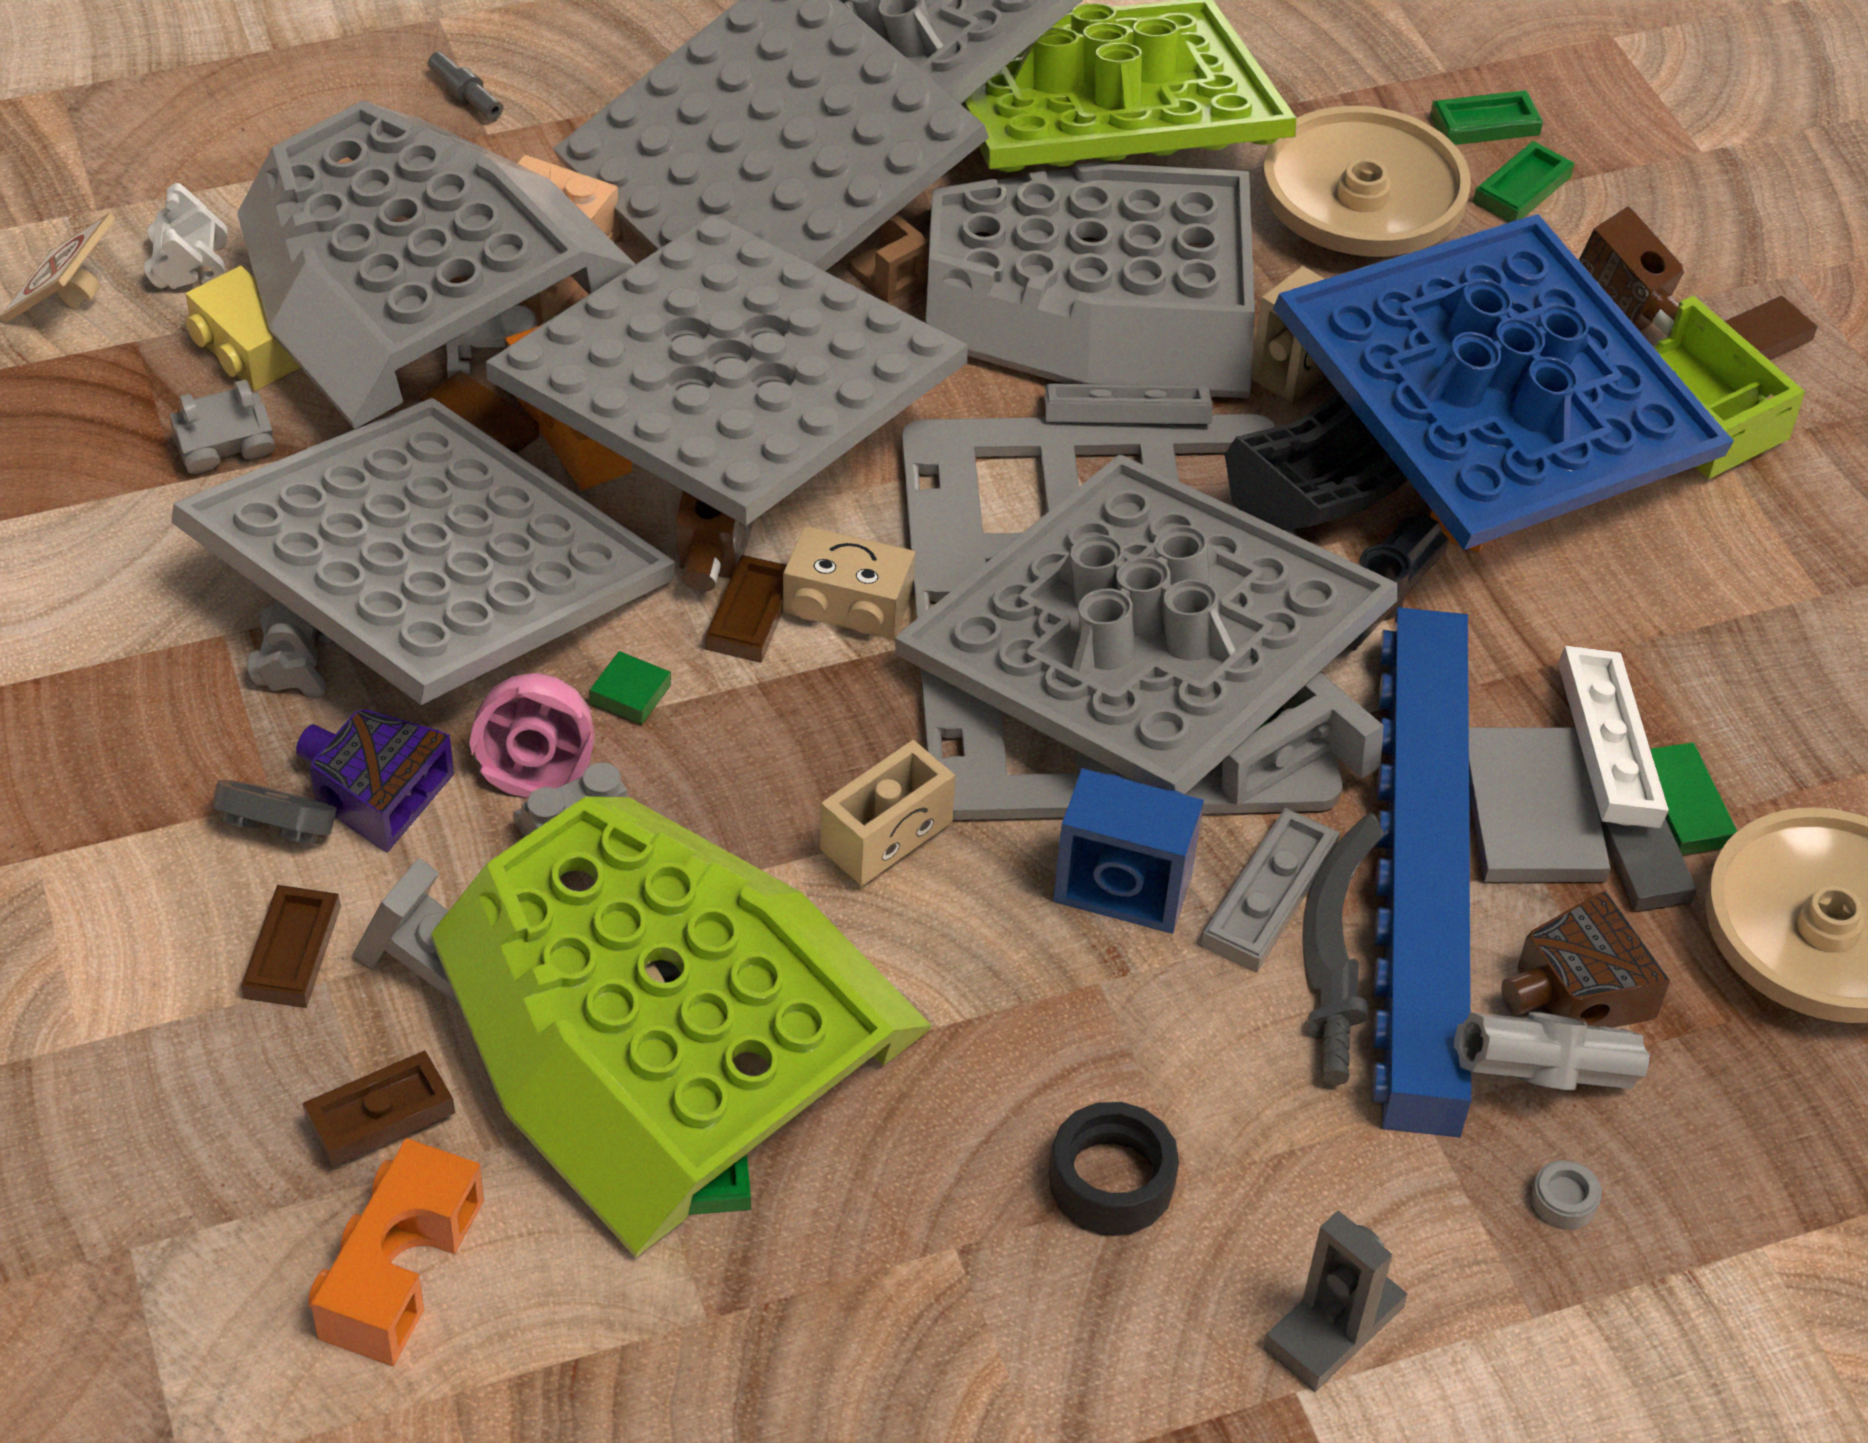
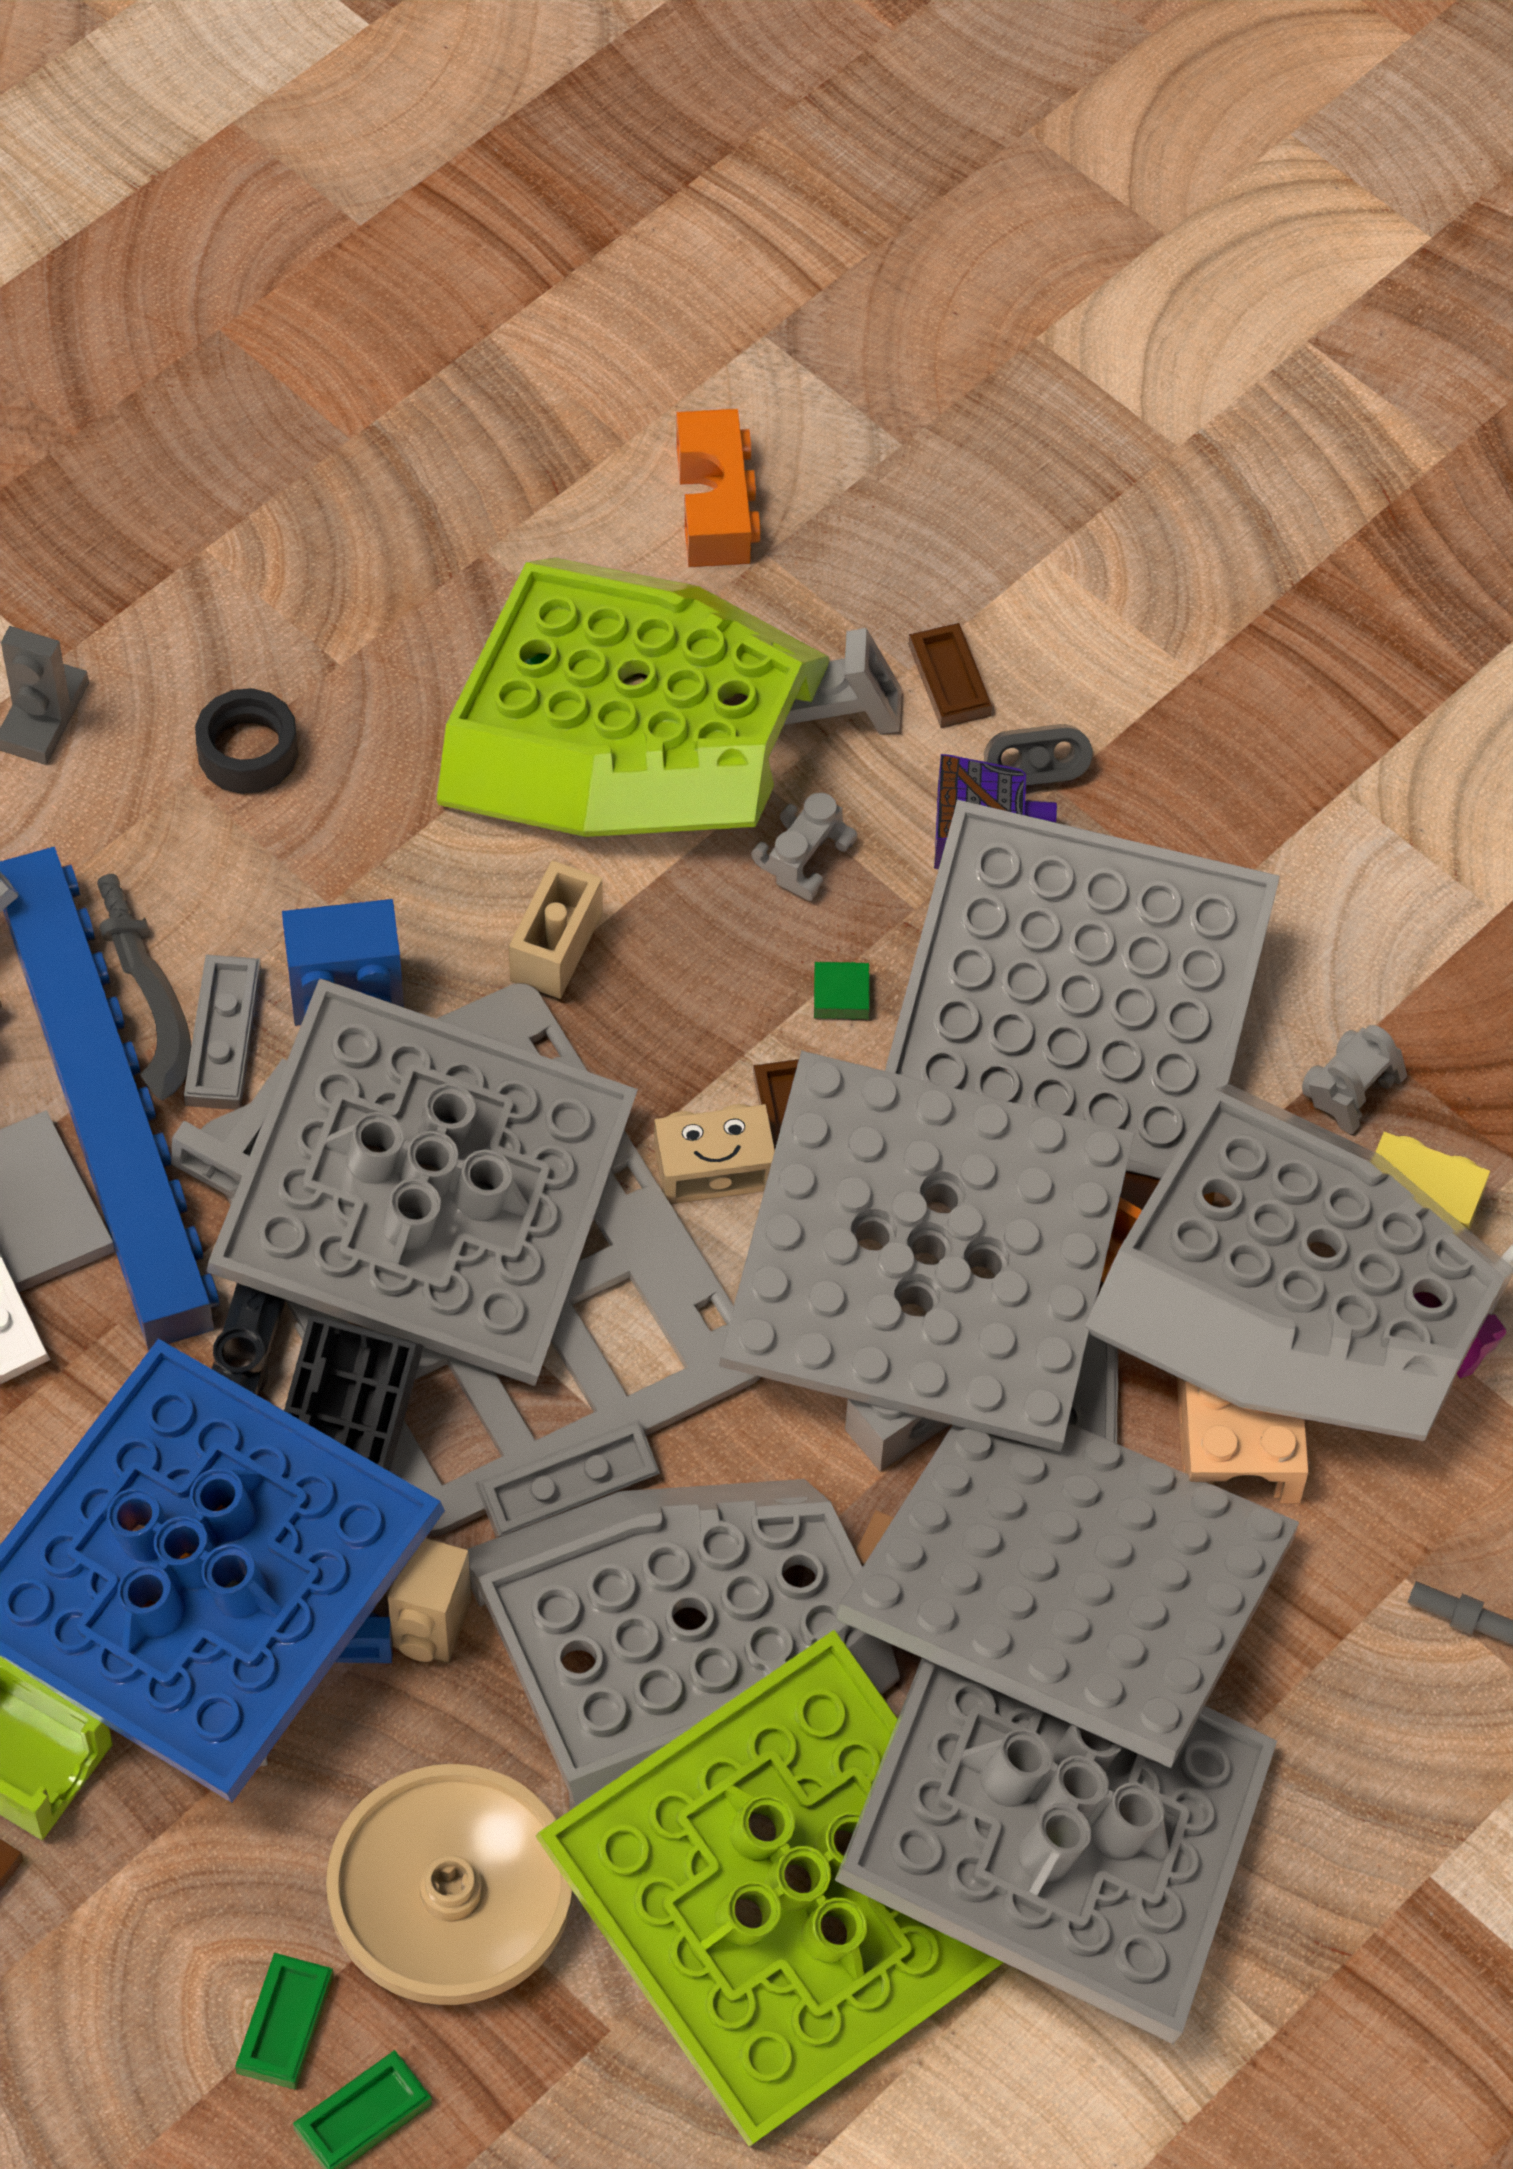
camera: 155 degrees right, 10 degrees up
(378, 1108) = (796, 576): reddish brown plate -> none
(532, 734) = (880, 888): bright pink cylinder -> none
(1634, 270) = (118, 1857): reddish brown torso -> none

